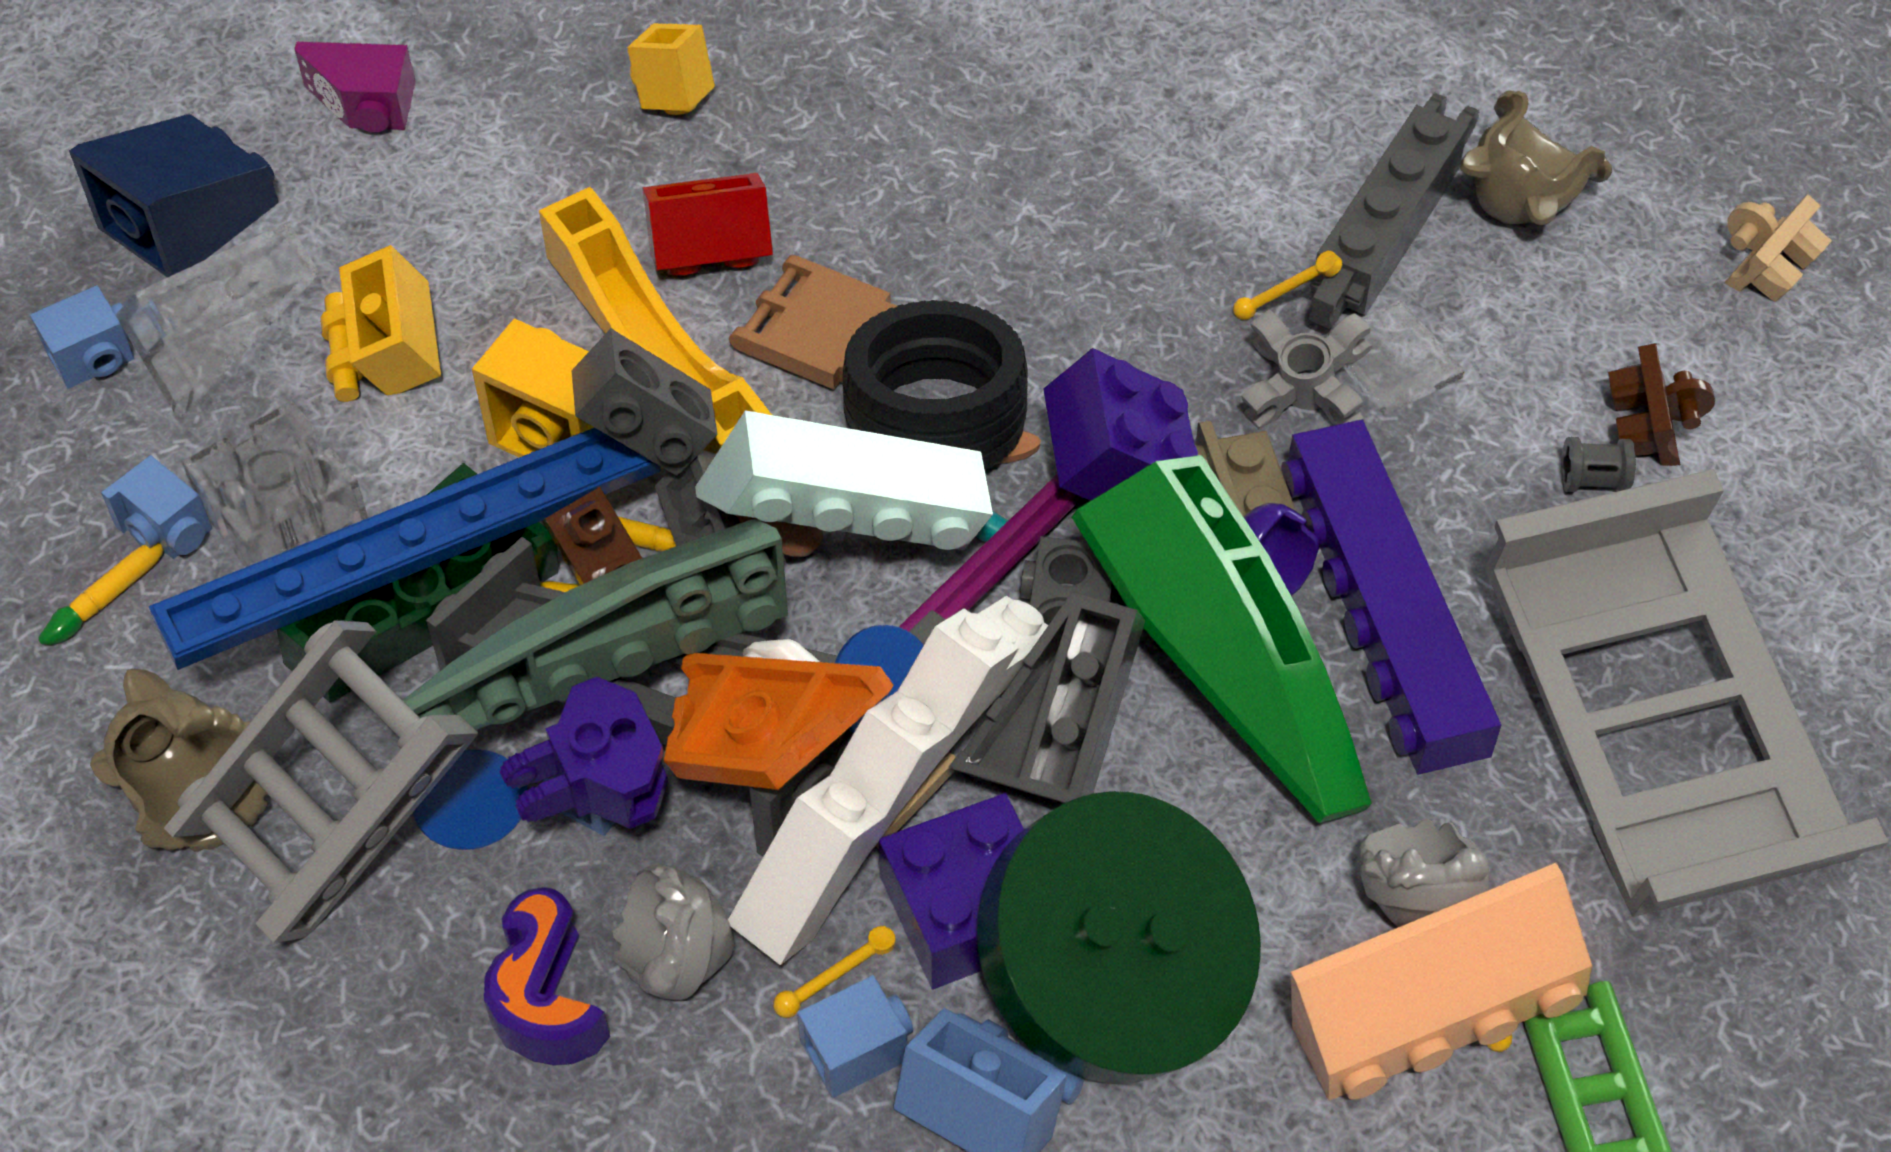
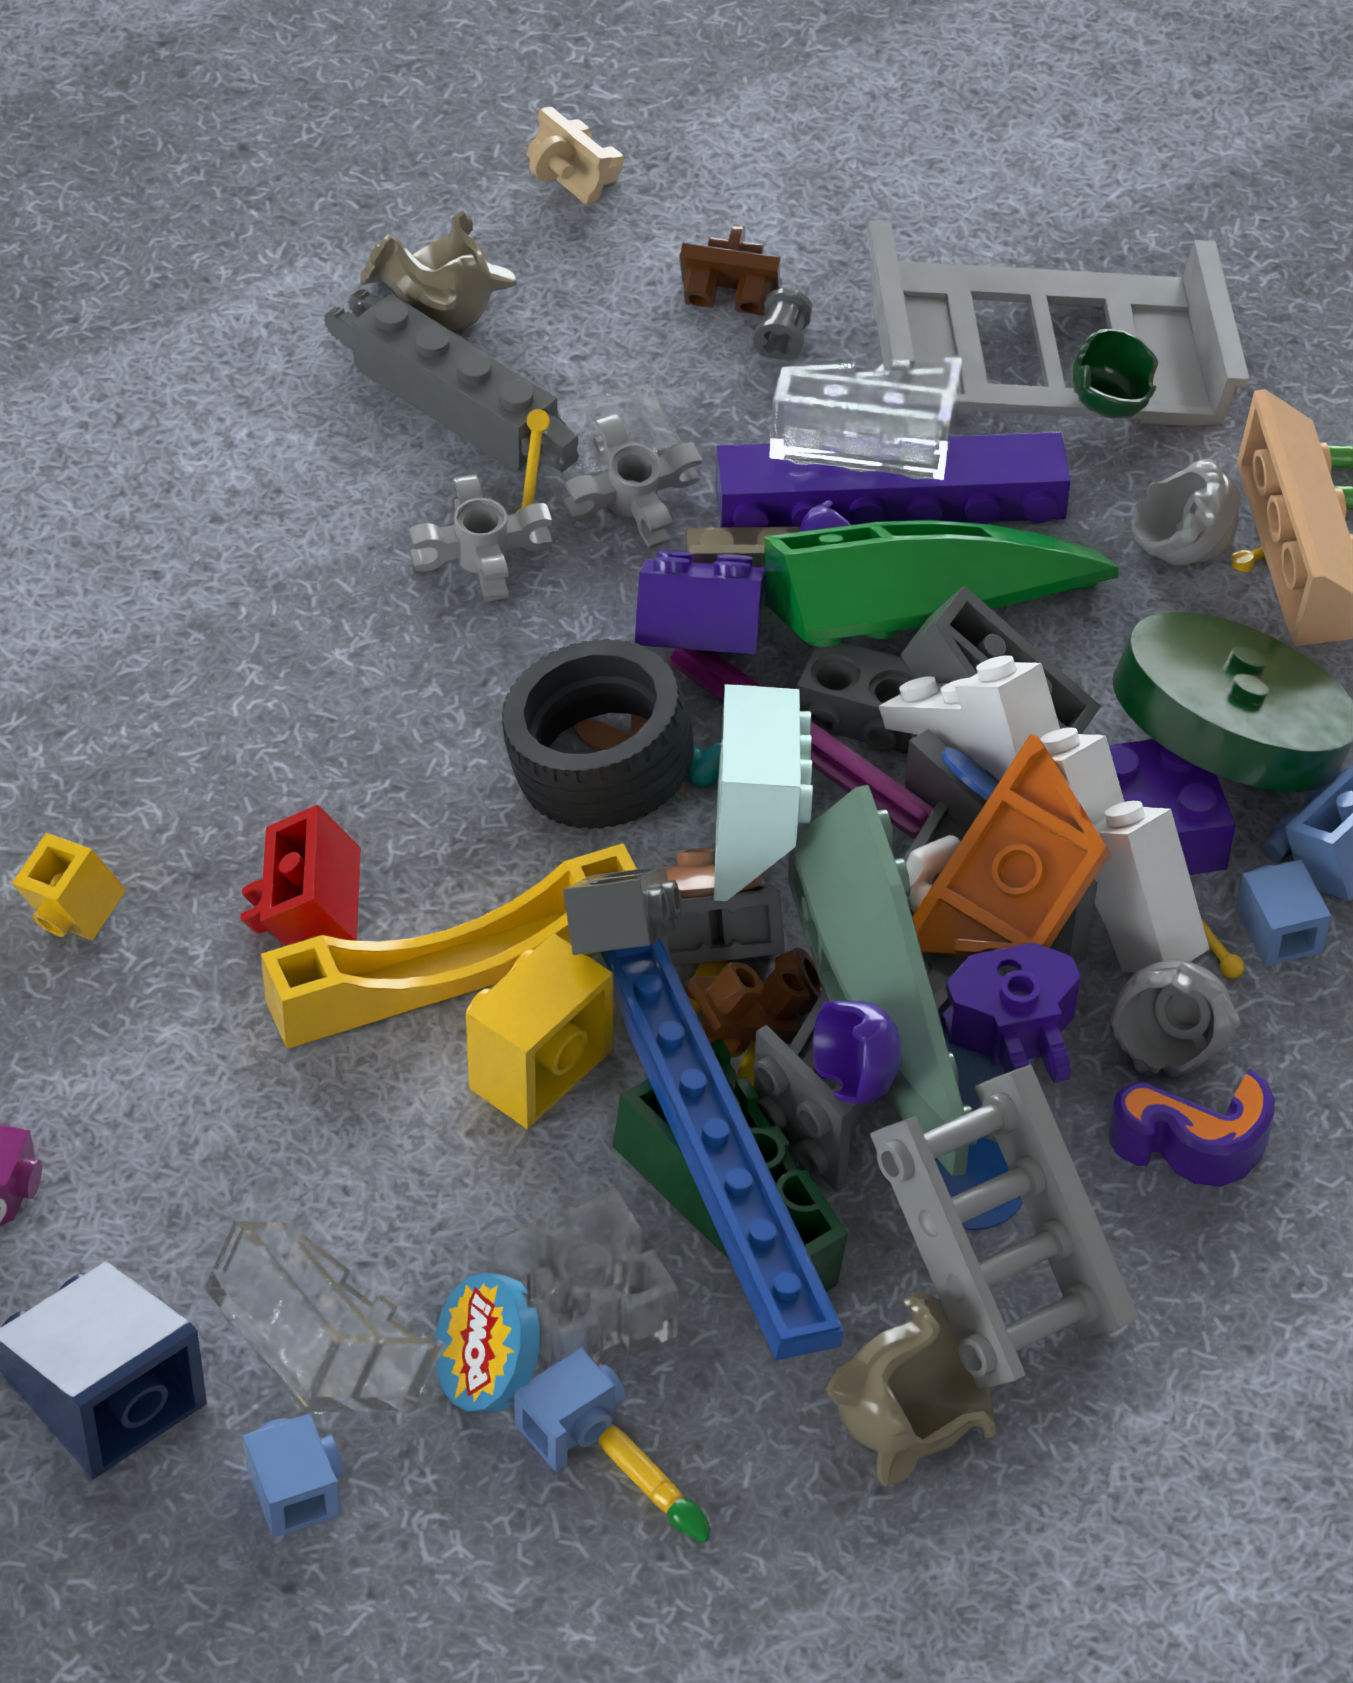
camera: 80 degrees left, 5 degrees down
(206, 430) = (488, 1343): none -> tile
(380, 327) = (371, 1173): yellow brick -> none
(474, 605) = (857, 1049): none -> dark purple hair
(811, 323) = (459, 827): medium nougat plate -> none
(1192, 271) = (481, 537): none -> light grey pin
(1413, 527) = (867, 419): none -> clear wedge
(1604, 758) = (1114, 373): none -> dark green hair

